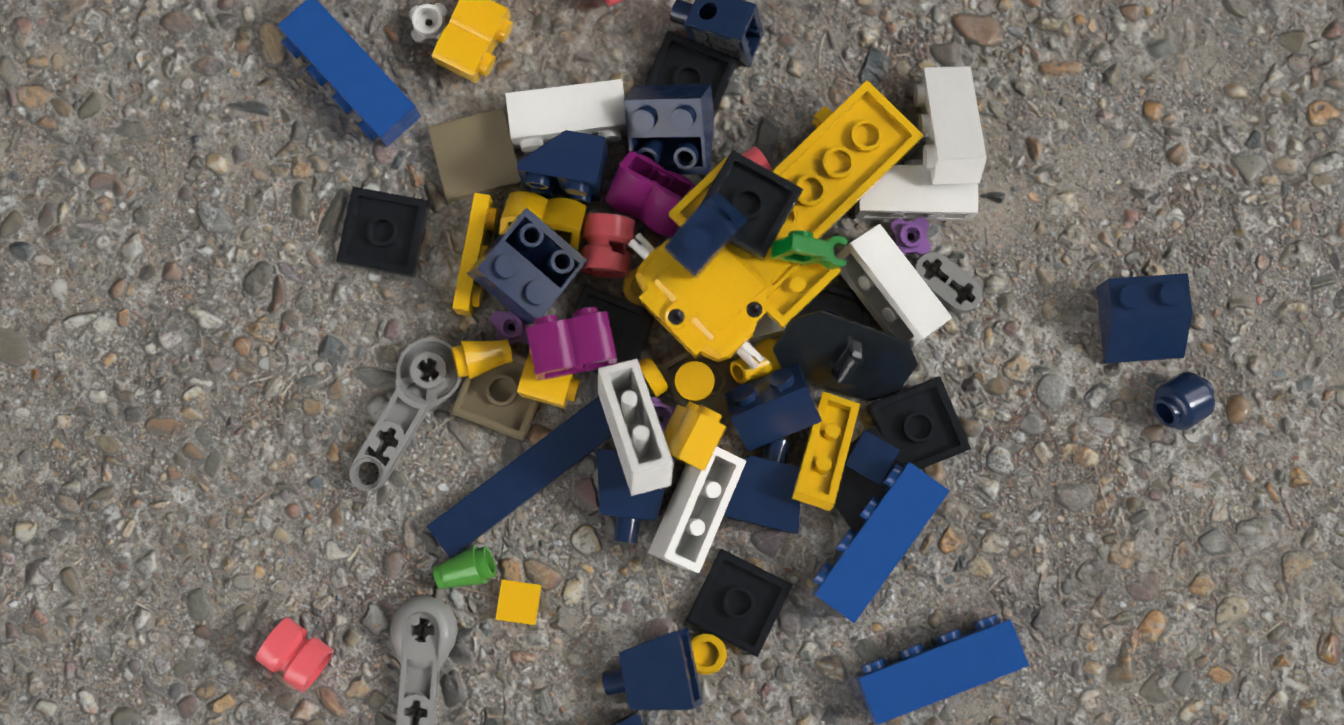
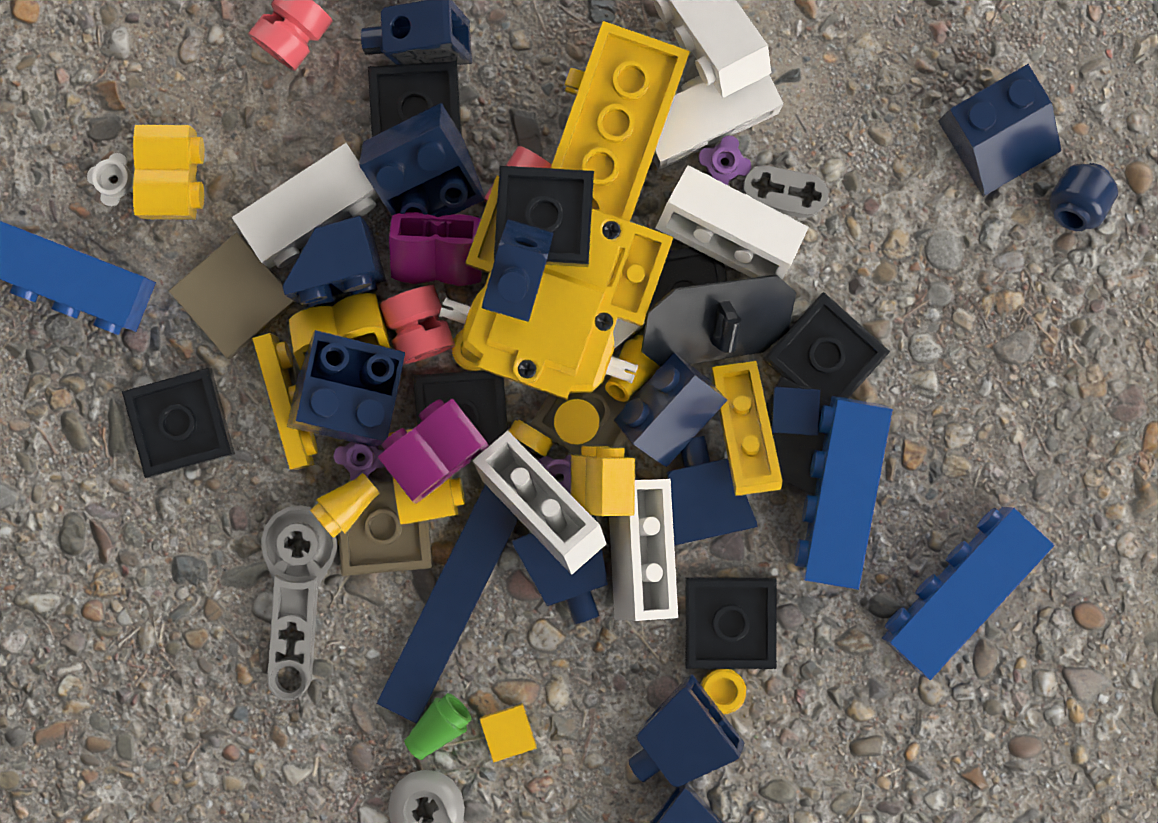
camera: 25 degrees left, 5 degrees up
(804, 249) = (625, 234): green plate -> none

